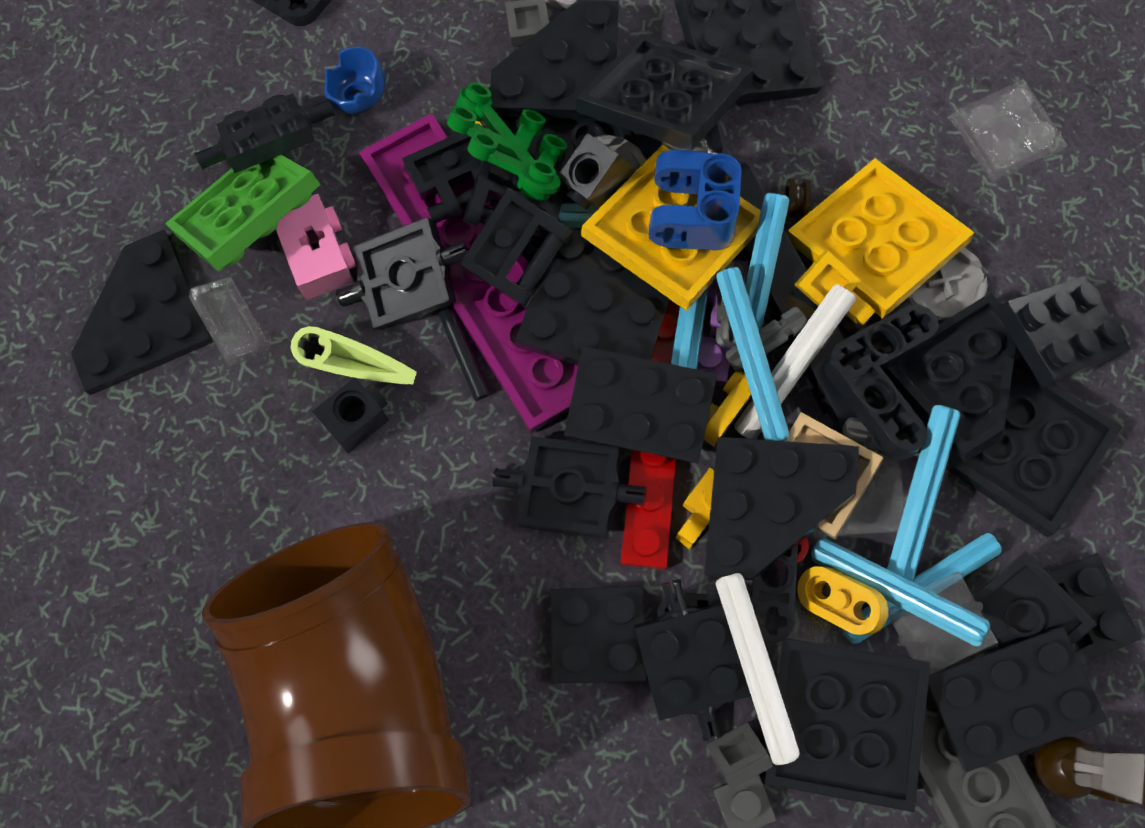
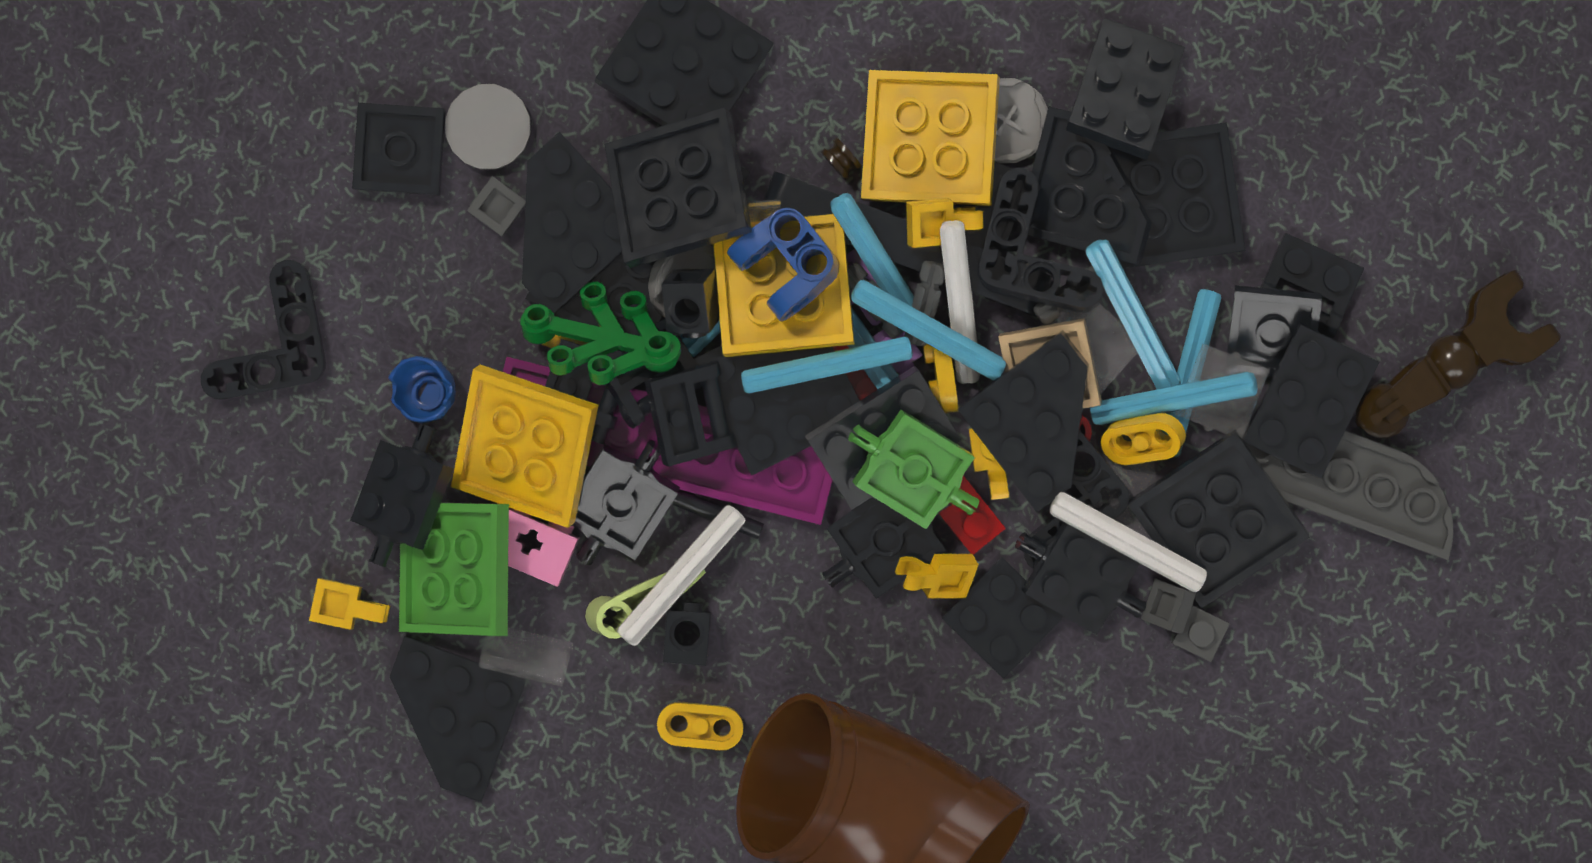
camera: 45 degrees left, 15 degrees up
(147, 170) = (340, 605): none -> yellow plate
(294, 492) = (700, 726): none -> yellow plate
(378, 166) = (524, 445): none -> yellow plate
(390, 362) = (681, 575): none -> white axle
(582, 554) = (943, 578): none -> yellow plate
(641, 442) = (913, 469): none -> bright green plate
(651, 309) = (826, 365): none -> medium azure axle

